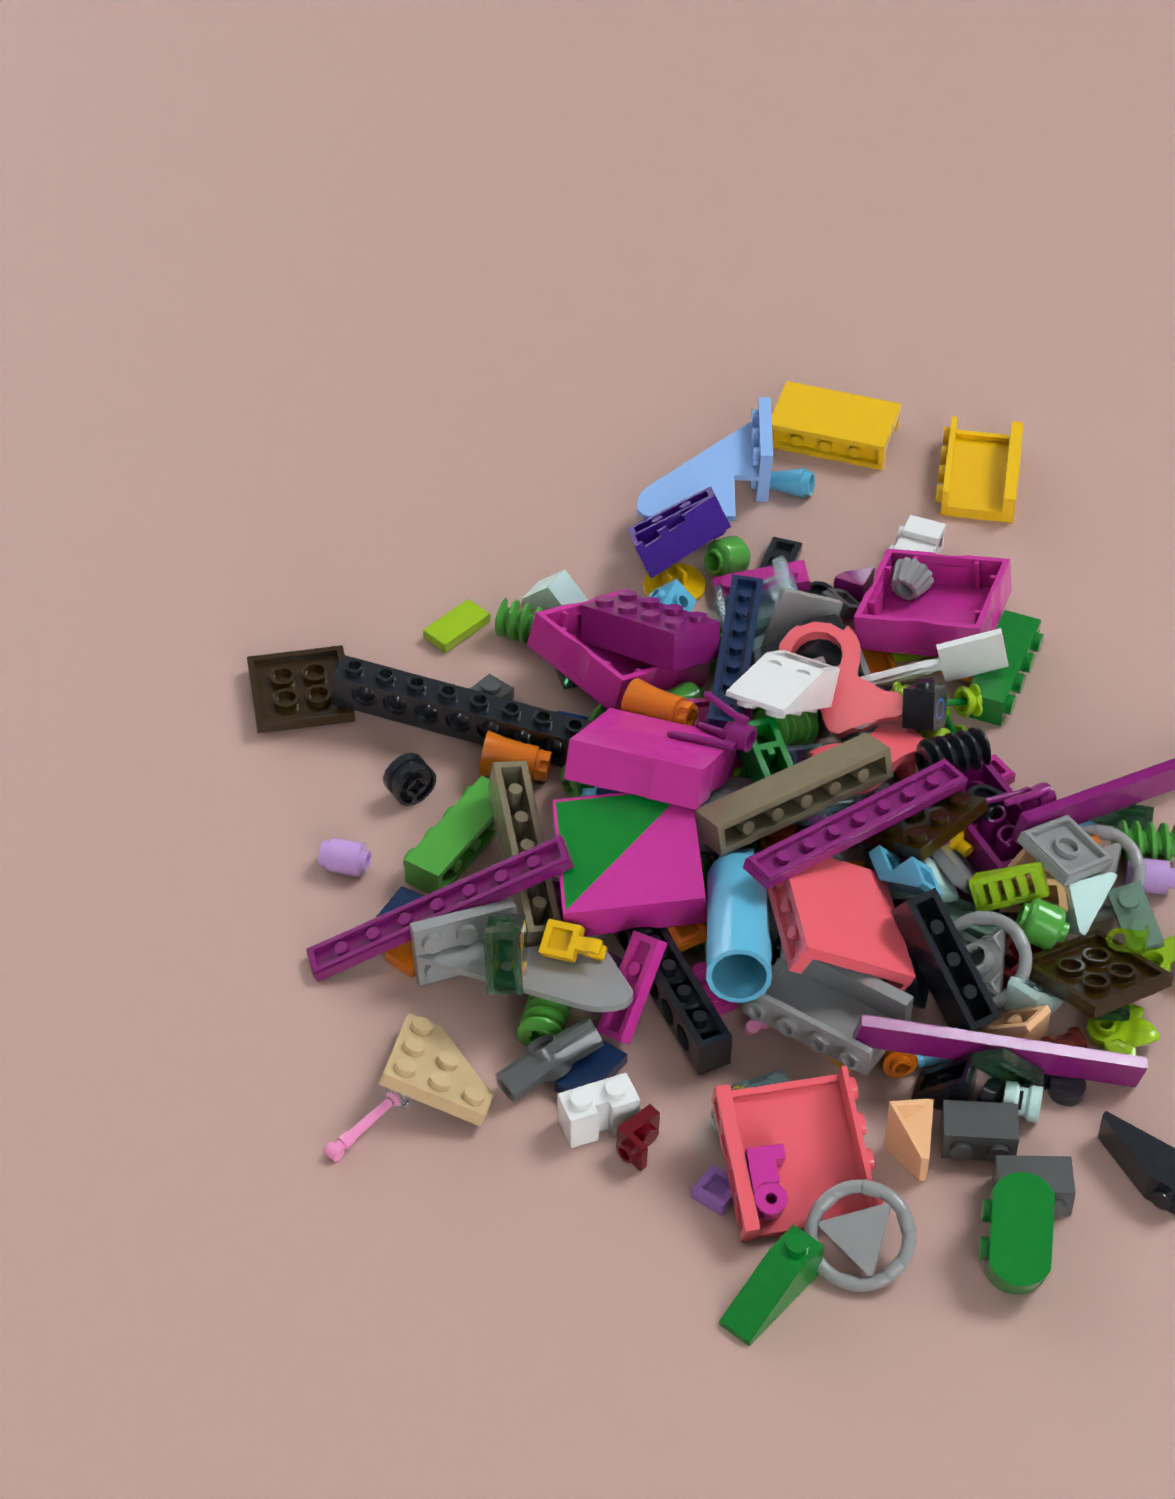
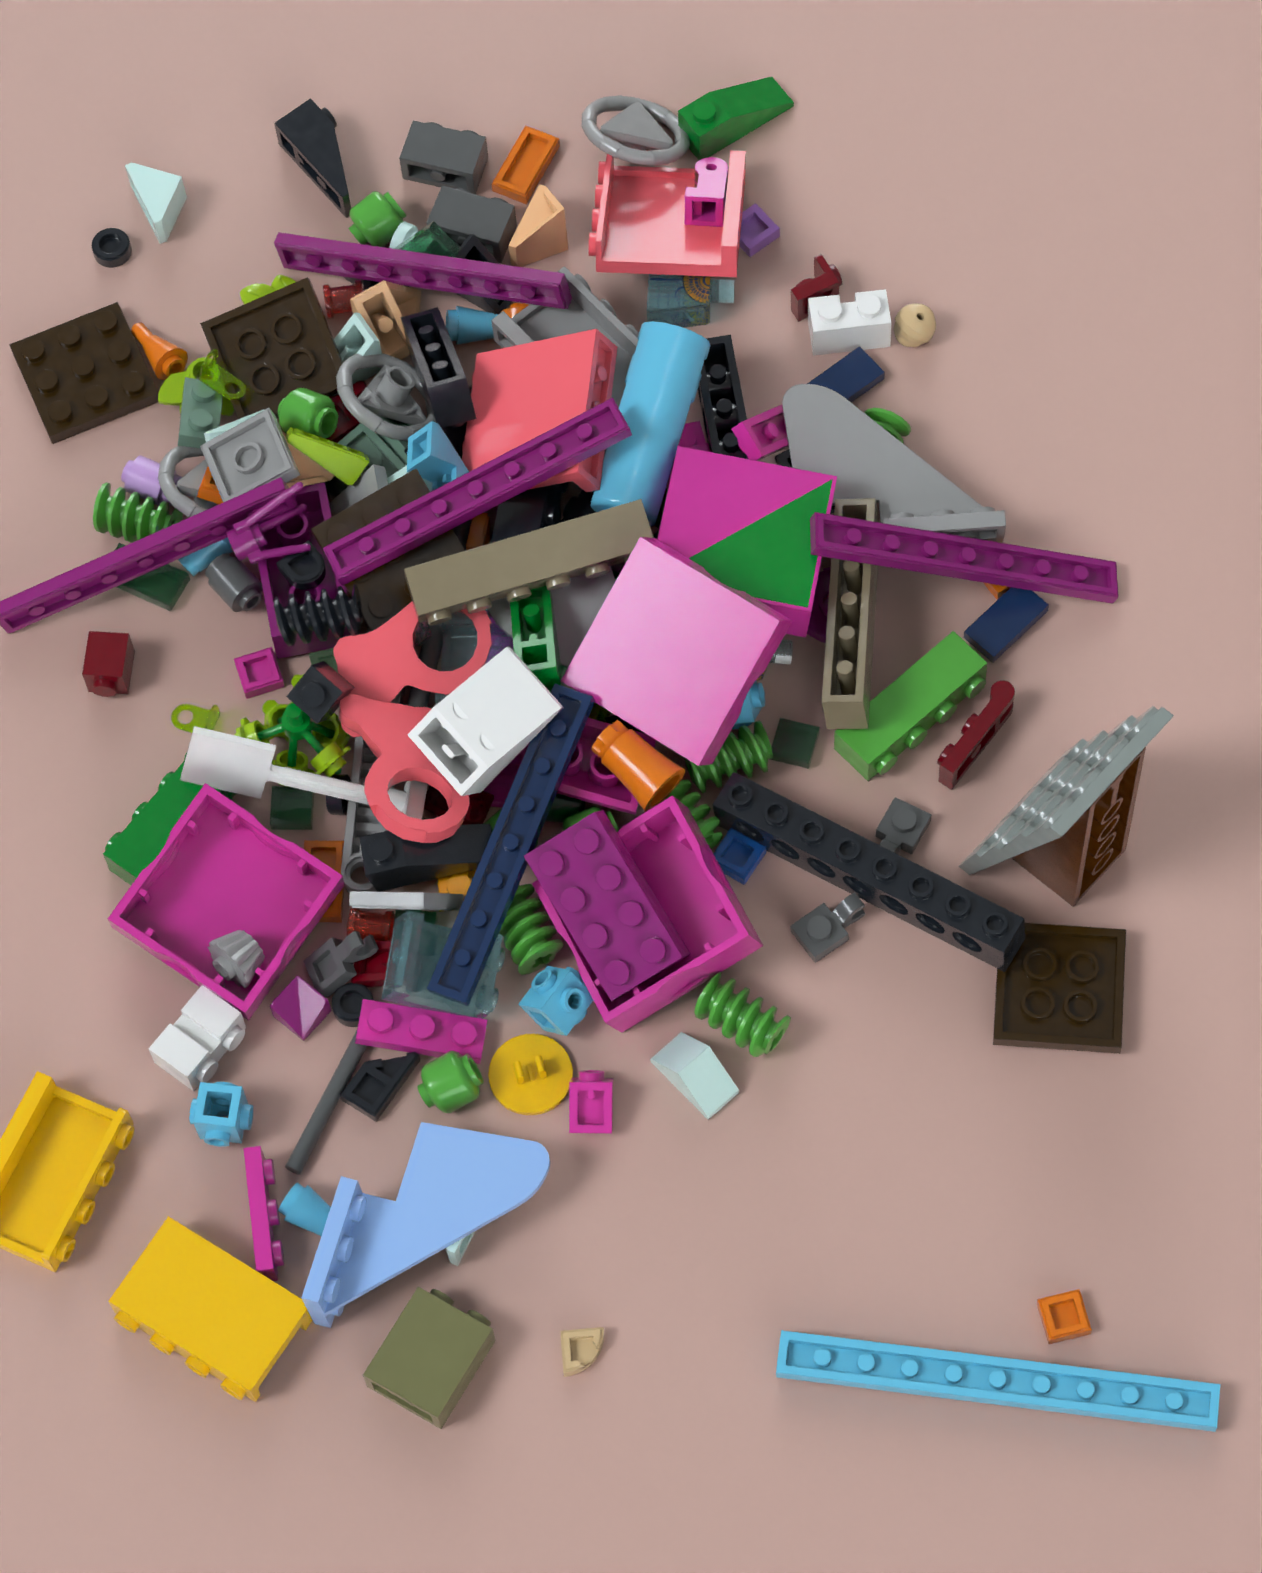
camera: 160 degrees left, 20 degrees up
(260, 525) = (1064, 1316): none -> orange tile
(297, 482) = (998, 1381): none -> medium azure plate
(314, 716) = (1077, 813): none -> piece
(336, 1150) = (1053, 391): bright pink piece -> none
(344, 856) = (1052, 708): lavender brick -> none
(401, 827) = (977, 734): none -> dark red plate
(409, 779) = (954, 795): black wheel -> none
(435, 1072) = (1010, 404): tan plate -> none
(449, 763) = (902, 827): none -> dark grey plate
(456, 625) = (835, 1059): lime tile -> none
(503, 749) = (824, 796): orange plant -> none
(505, 942) = (910, 445): clear green torso -> none
(538, 1125) = (914, 325): none -> tan piece
(544, 803) = (794, 743): none -> clear green tile
(549, 1058) = (906, 385): dark grey piece -> none
(566, 940) = (839, 463): yellow plate -> none
(584, 457) = (580, 1348): none -> tan tile
(624, 569) = (590, 1103): none -> dark pink bracket
(678, 530) = (513, 1100): dark purple wedge -> none
(679, 426) = (430, 1356): none -> olive brick
(734, 735) = (572, 638): magenta plant -> none
(811, 534) = (325, 1107): none -> dark grey bar
(827, 475) = (263, 1212): none -> dark pink plate
(879, 513) = (212, 1104): none -> medium azure brick
(955, 1208) = (525, 164): none -> orange tile
(1018, 1233) = (485, 92): green brick -> none
(1019, 740) = (201, 717): none -> clear neon green piece
(1067, 1116) = (376, 219): none -> bright green head
(1110, 748) = (108, 663): none -> dark red brick

